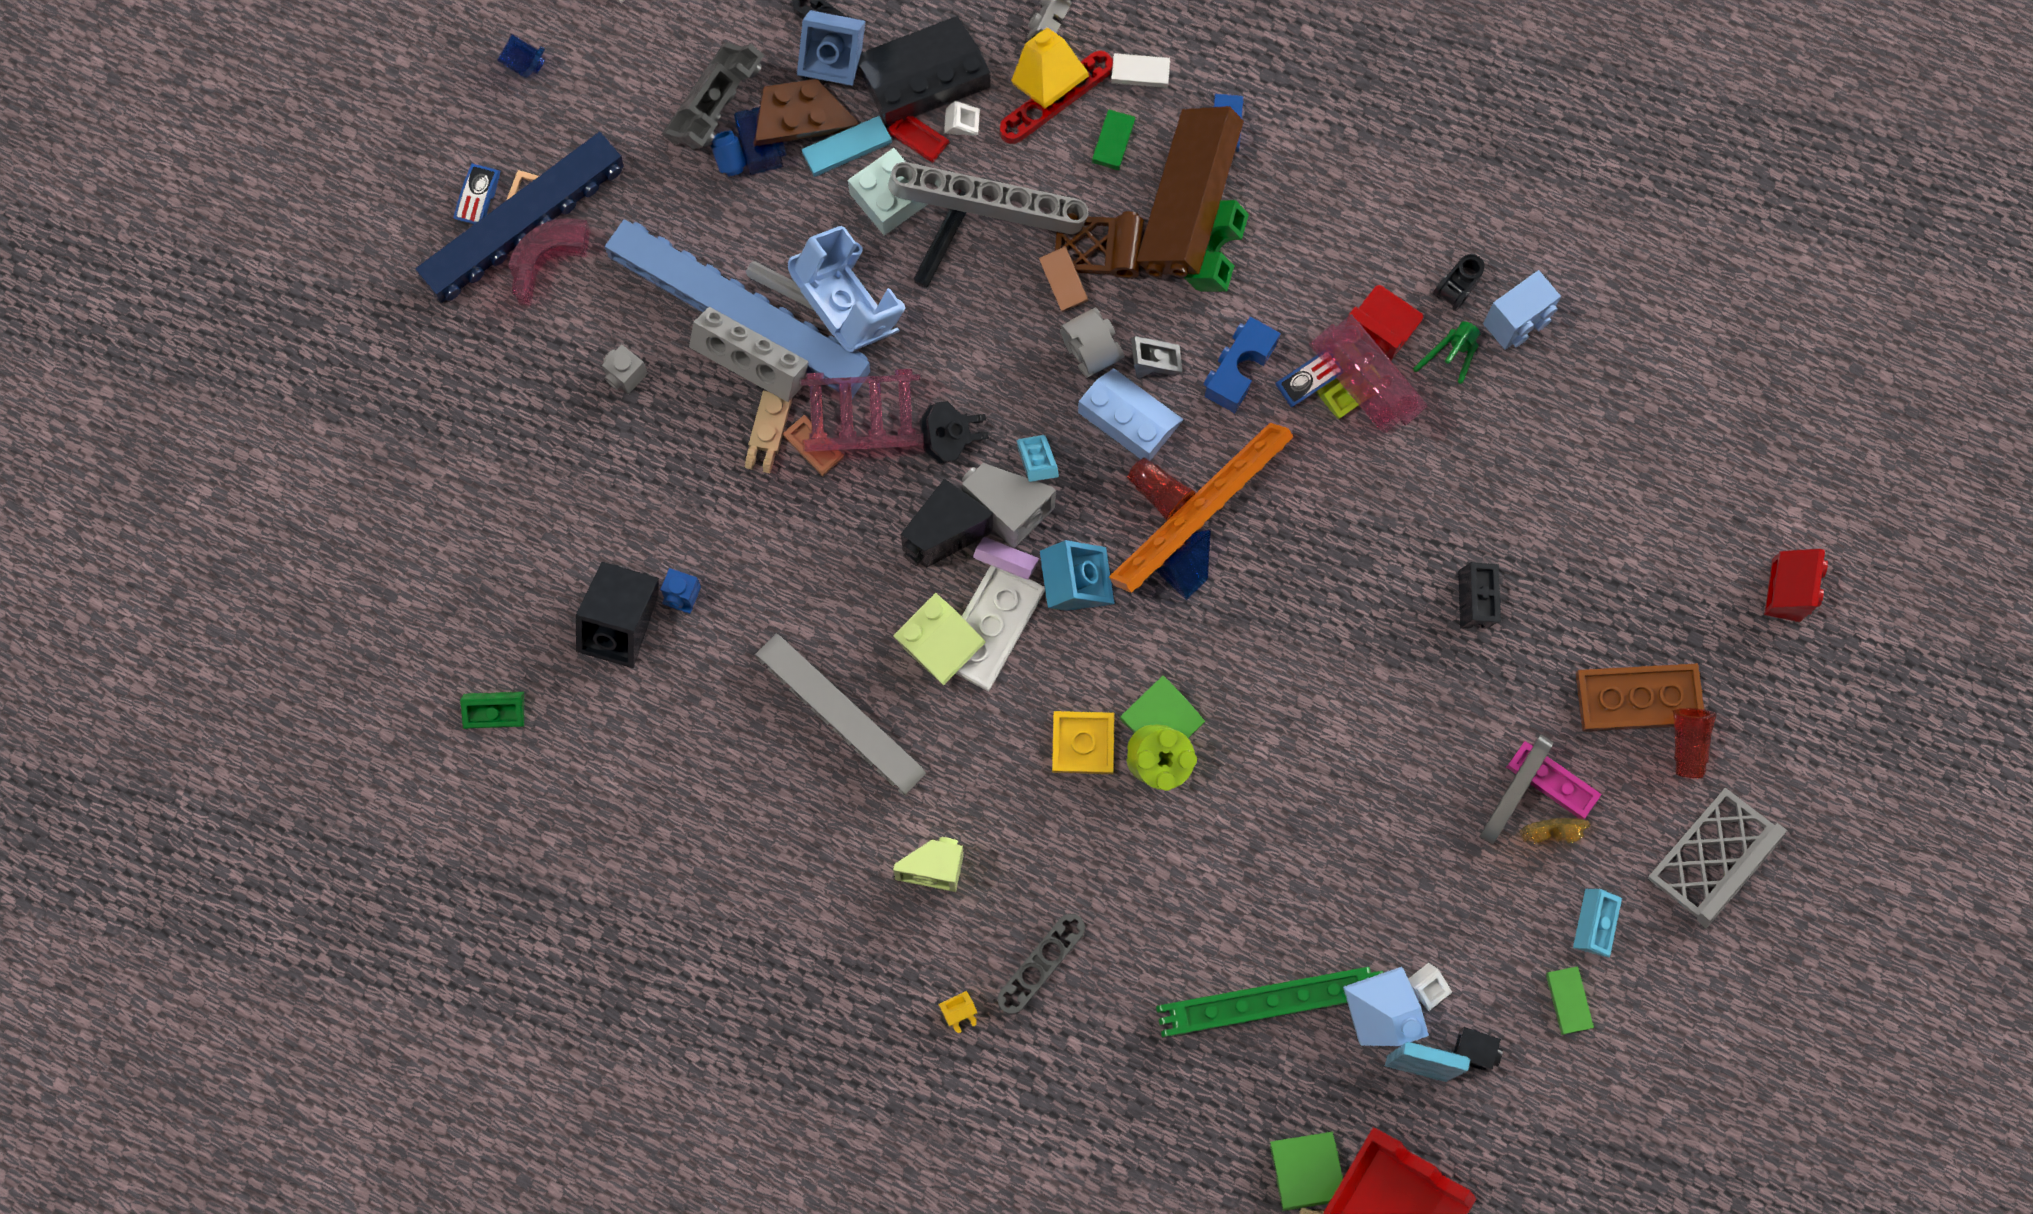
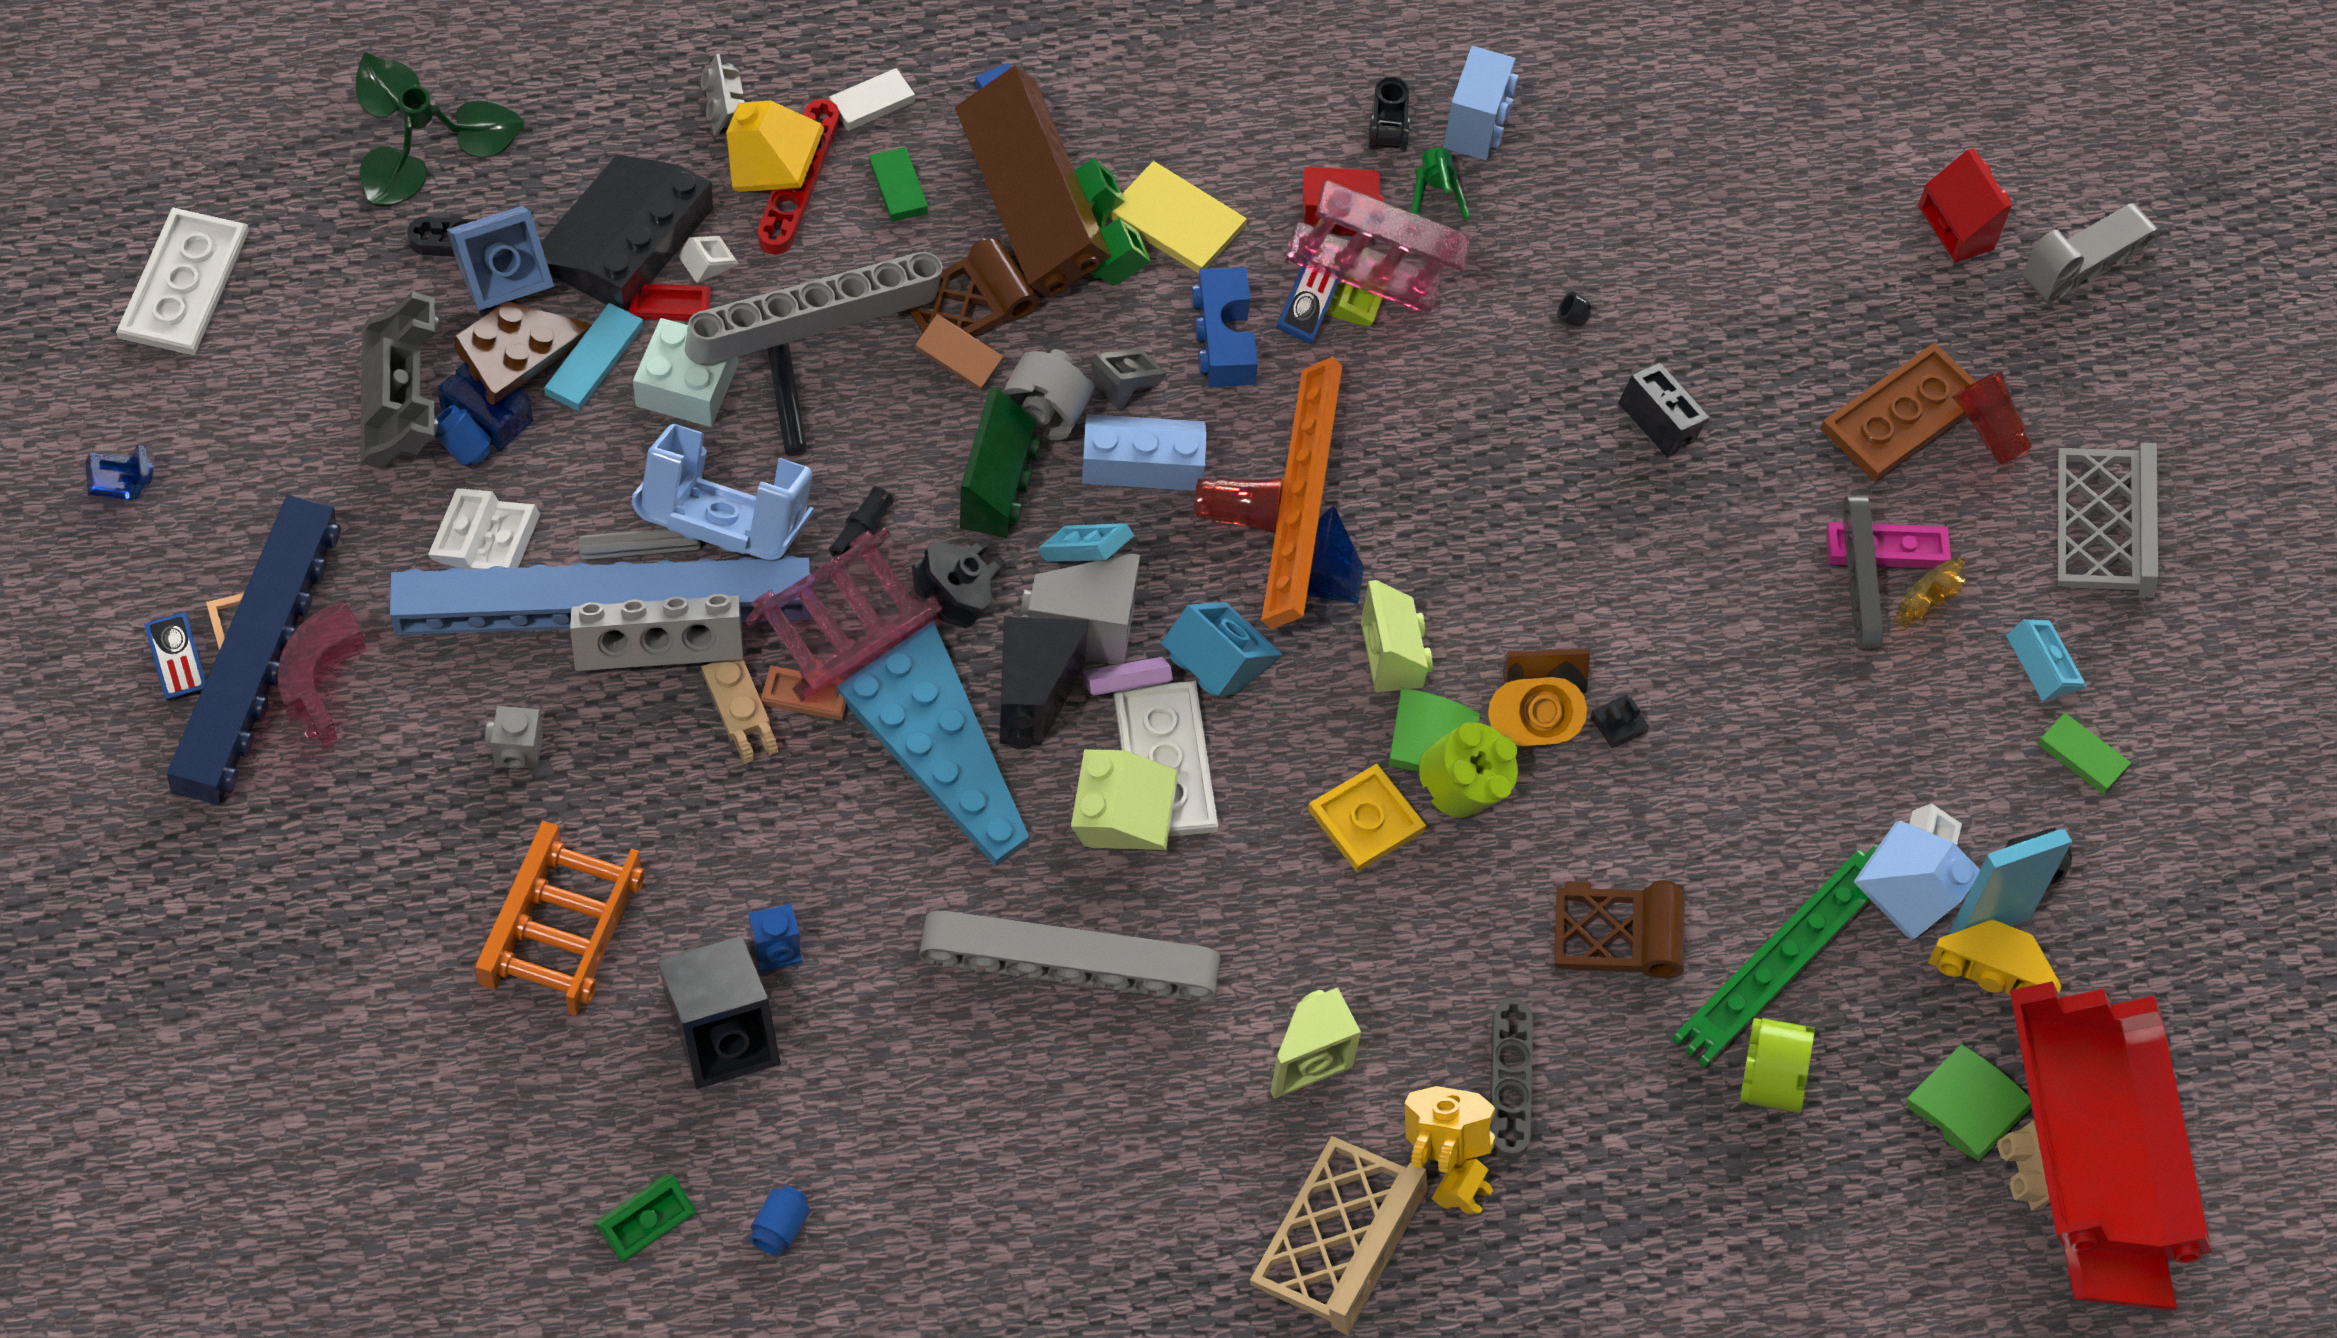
camera: 40 degrees left, 15 degrees down
(560, 763) = (779, 1220): none -> blue brick
(569, 469) = (533, 887): none -> orange fence
(702, 224) = (483, 531): none -> white slope
(868, 510) = (928, 725): none -> dark azure wing
(877, 1013) = (1374, 1250): none -> tan fence
(923, 356) = (863, 520): none -> black pin
(970, 972) = (1448, 1129): none -> yellow hinge
(1026, 371) = (998, 467): none -> dark green slope
(1183, 641) = (1394, 639): none -> yellowish green slope
(1201, 1069) = (1777, 1065): none -> lime brick
(1202, 928) = (1656, 929): none -> reddish brown piece
(1233, 746) = (1538, 711): none -> light orange piece
(1264, 722) = (1557, 663): none -> reddish brown slope
(1271, 269) = (1178, 217): none -> light yellow tile
(1287, 783) = (1619, 721): none -> black tile
(1398, 1097) = (1994, 957): none -> yellow slope
(1477, 490) = (1574, 309): none -> black hinge
(1829, 665) = (2062, 264): none -> light grey beam

